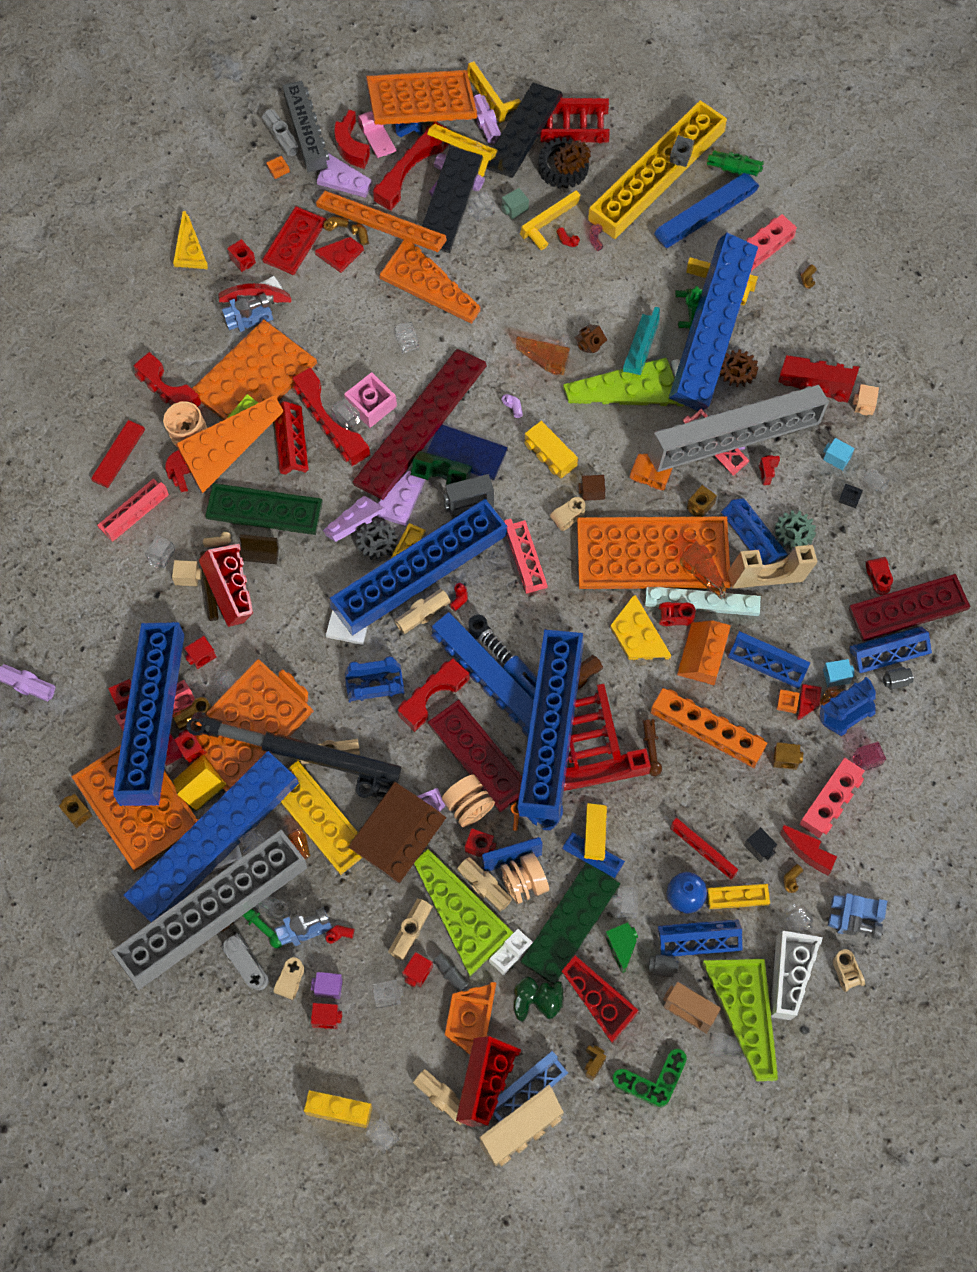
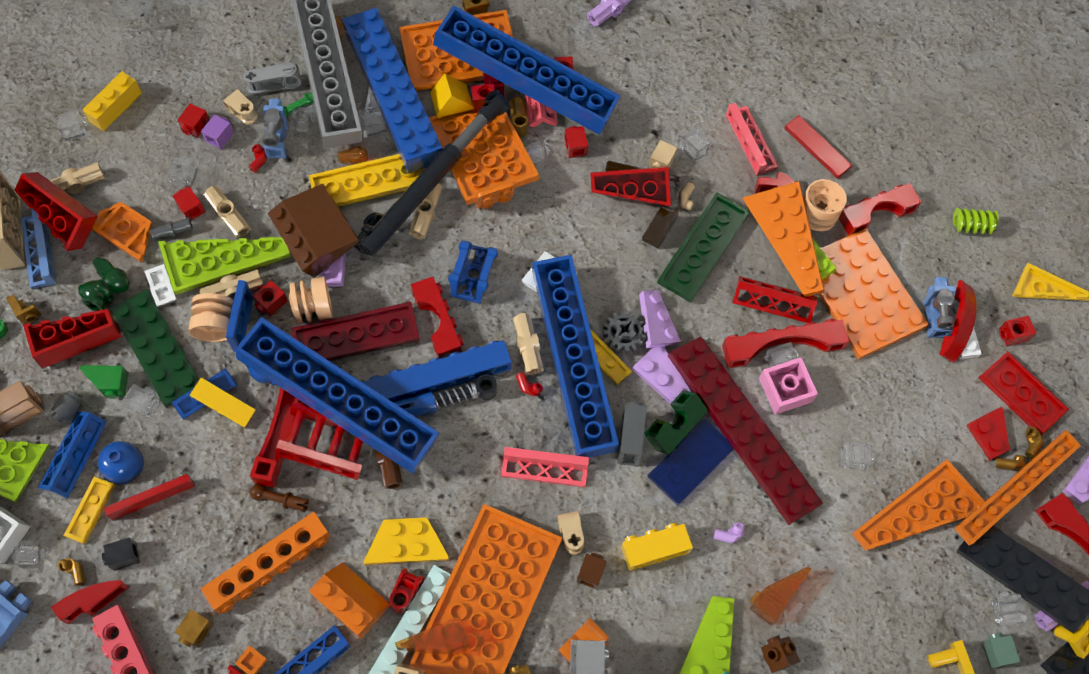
camera: 110 degrees right, 0 degrees up
(148, 310) = (976, 220): none -> lime piece

